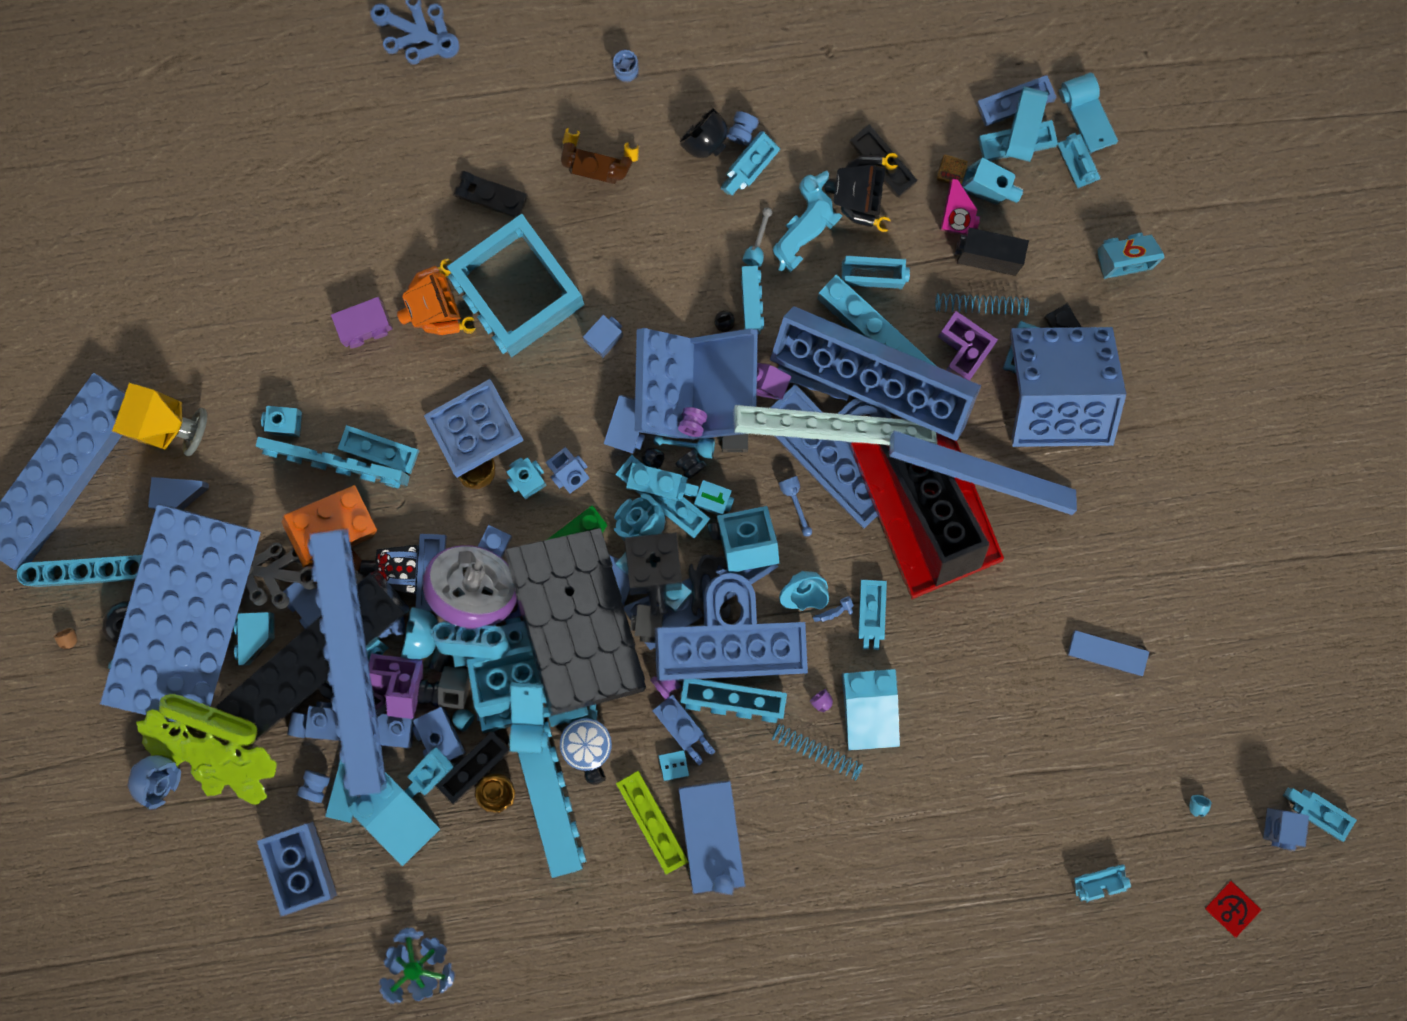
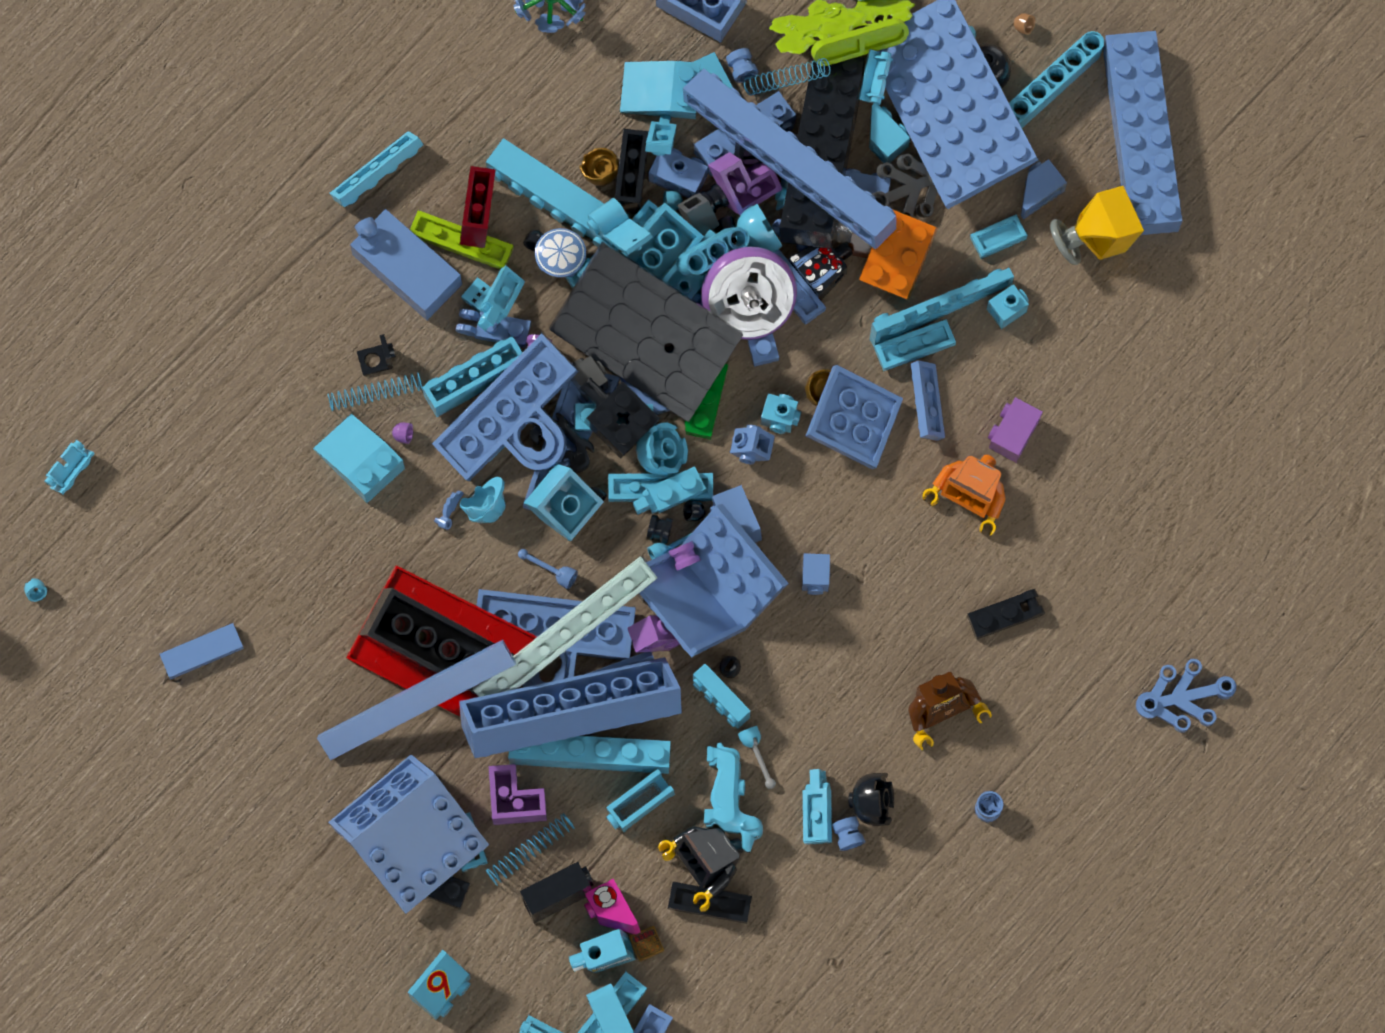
camera: 140 degrees right, 10 degrees down
(213, 688) = (875, 76): none -> medium azure hinge
(240, 484) = (998, 236): none -> medium azure tile
(290, 743) = (784, 85): none -> medium azure piece
(297, 725) = (793, 98): medium blue hinge -> none
(407, 398) = (927, 400): none -> medium blue plate
(541, 323) = (908, 590): medium azure window -> none
(619, 834) = (477, 207): none -> dark red brick
(662, 745) = (500, 297): none -> medium azure hinge
(670, 937) = (377, 168): none -> medium azure plate
(714, 498) = (618, 517): medium azure brick -> none
(784, 776) = (385, 353): none -> black bracket
(872, 612) = (419, 531): medium azure hinge -> none

